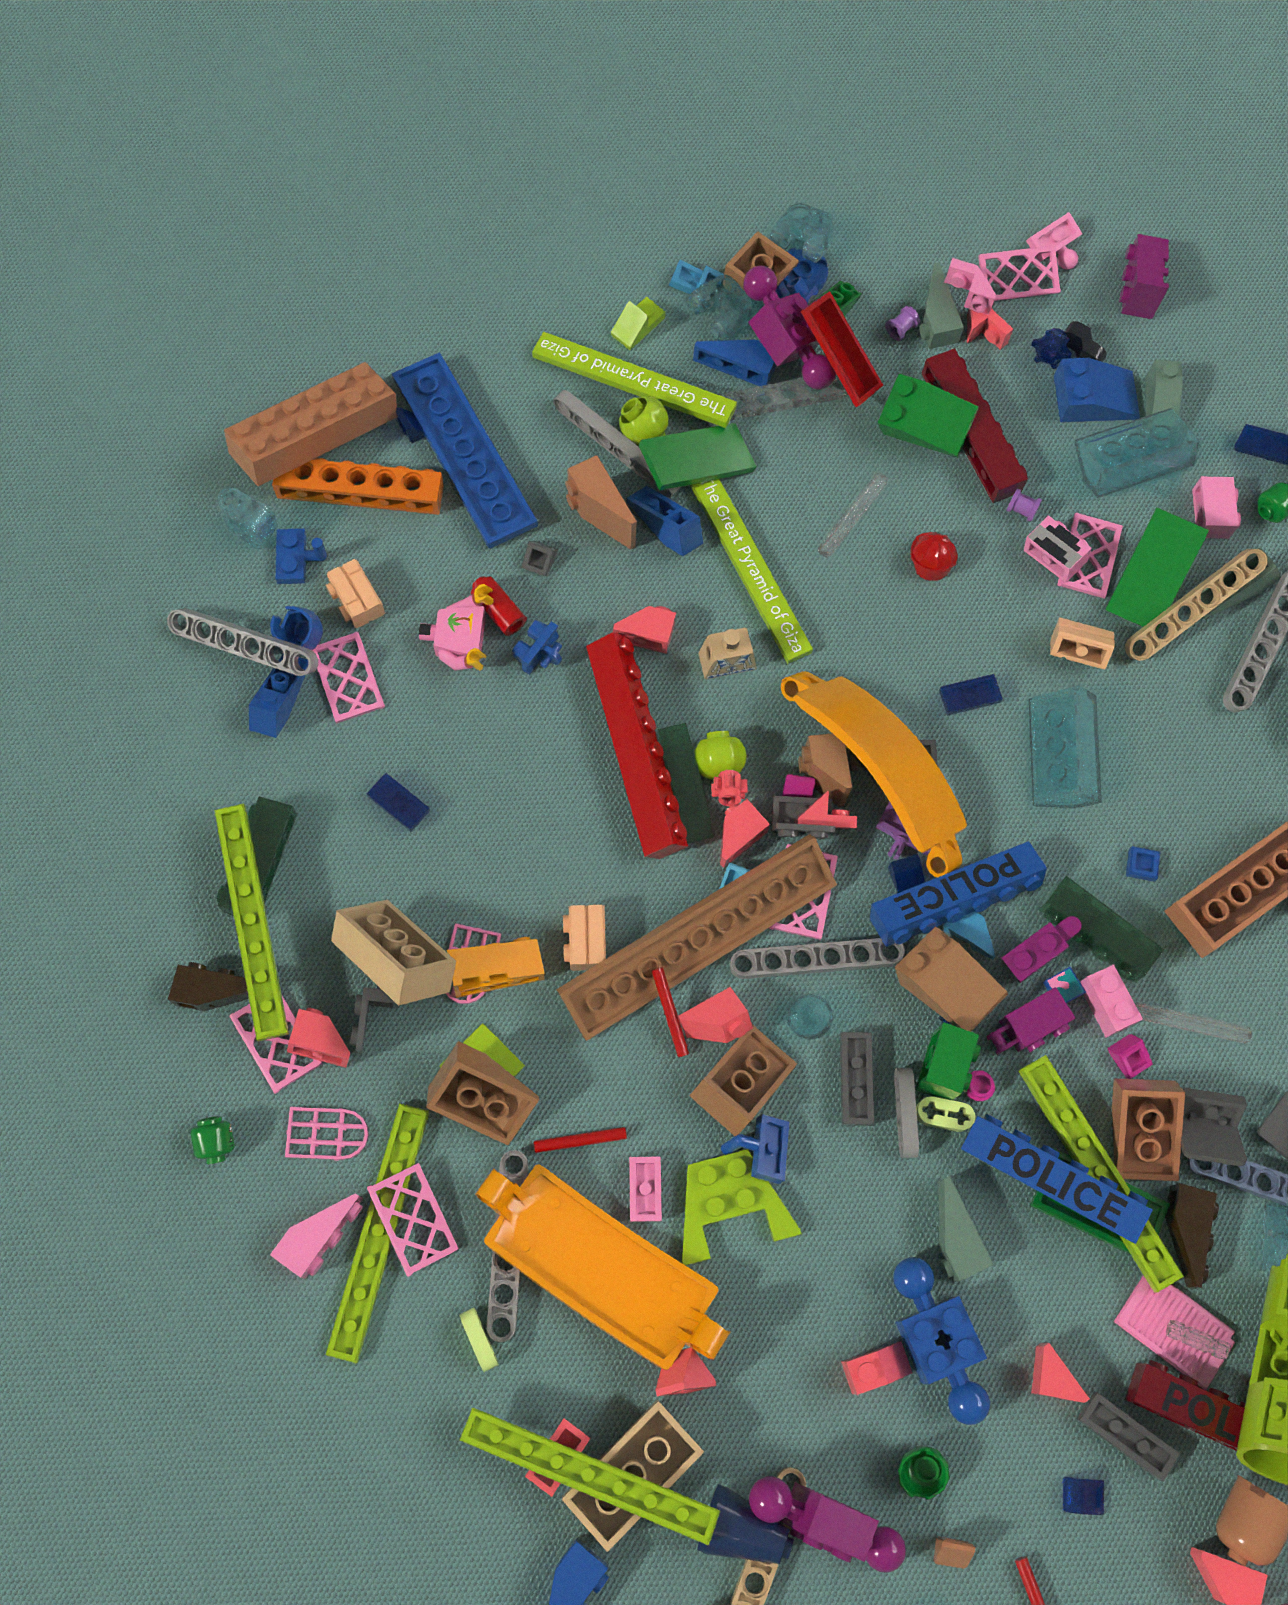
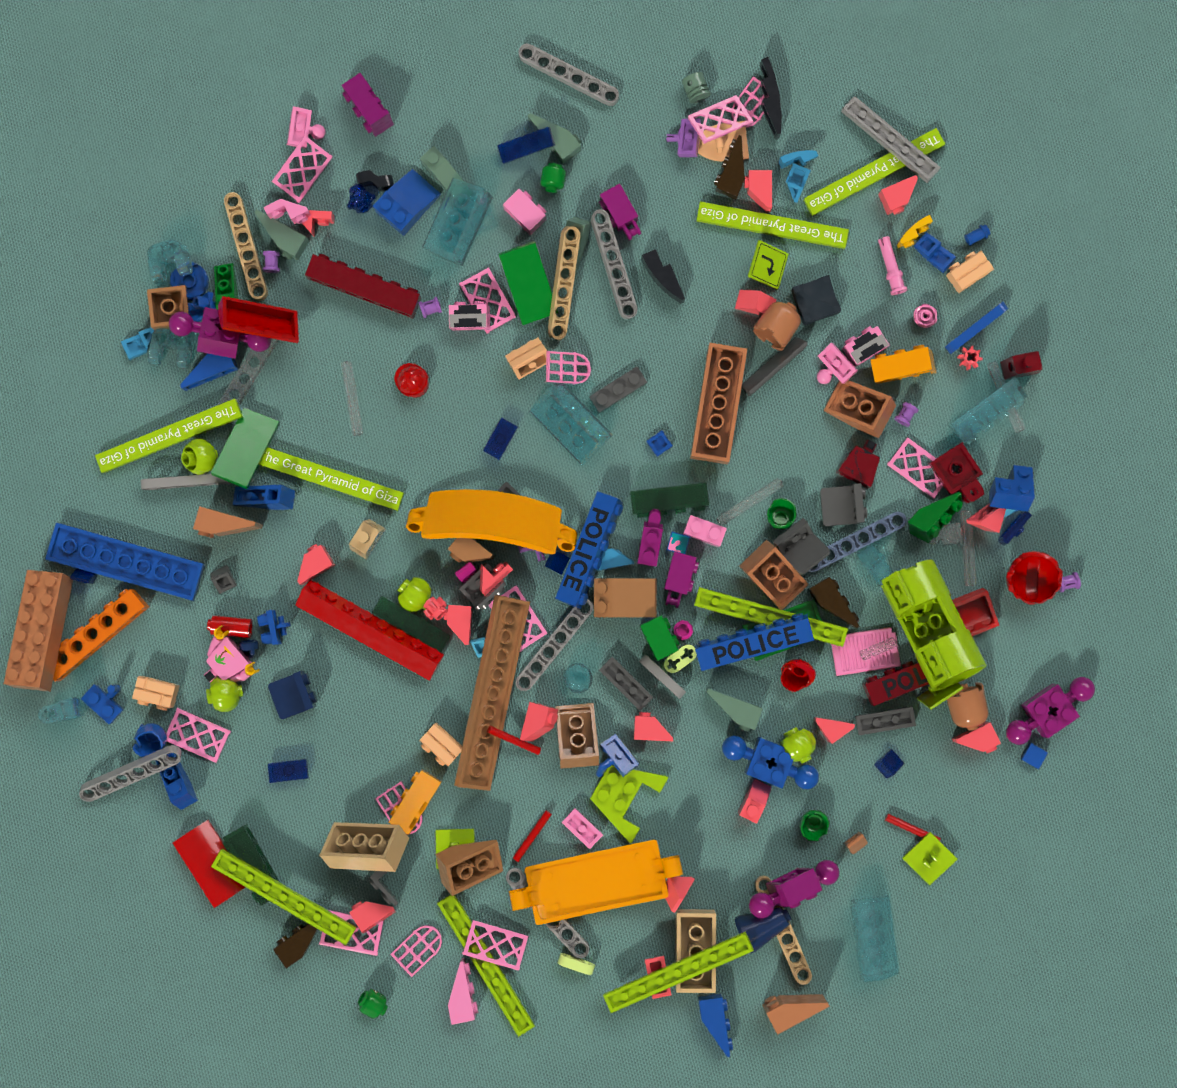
camera: 40 degrees left, 15 degrees up
(217, 785) = (198, 851): none -> red slope
(419, 662) = (224, 694): none -> lime plant
(487, 732) = (292, 695): none -> dark blue bracket
(494, 643) = (247, 645): none -> dark blue tile
(637, 322) = (136, 399): lime slope -> none
(835, 1156) = (649, 728): none -> coral slope
(890, 290) = (242, 247): none -> tan beam
(926, 416) = (337, 309): green slope -> none
(997, 1355) = (799, 744): none -> lime plant
(1072, 1268) = (797, 675): none -> red piece
(1106, 687) = (561, 372): none -> bright pink window
(1130, 1055) = (736, 545): dark pink slope -> none
(1149, 767) = (618, 389): none -> dark grey plate
(1220, 1069) = (781, 513): none -> green hair
(1231, 1469) = (934, 698): none -> lime piece

